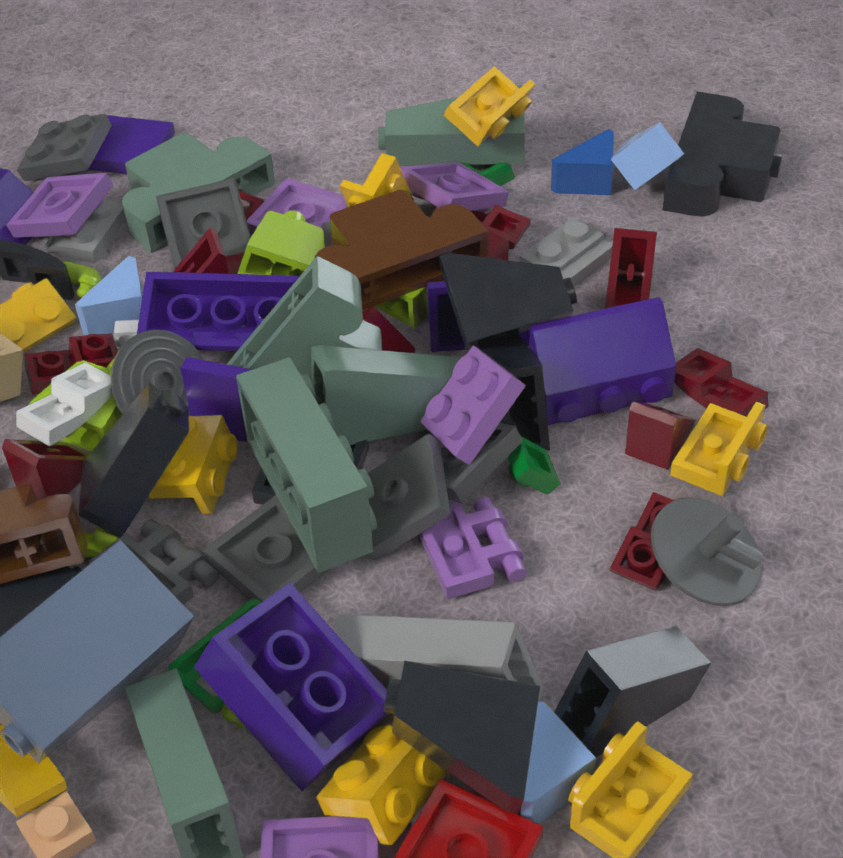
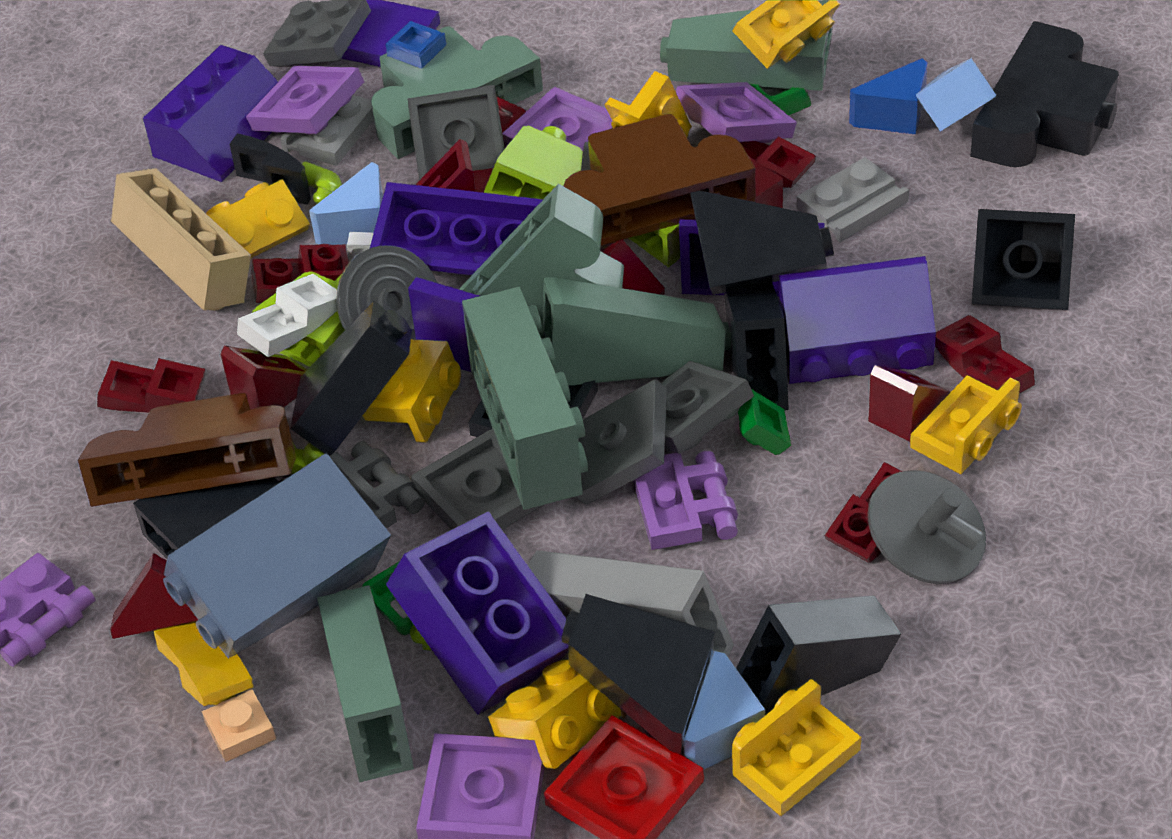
camera: 10 degrees right, 0 degrees up
(157, 149) = (415, 44): none -> blue tile
(471, 404) = (703, 352): medium lavender plate -> none
(630, 267) = (914, 219): dark red slope -> none
(736, 293) = (1023, 259): none -> black slope

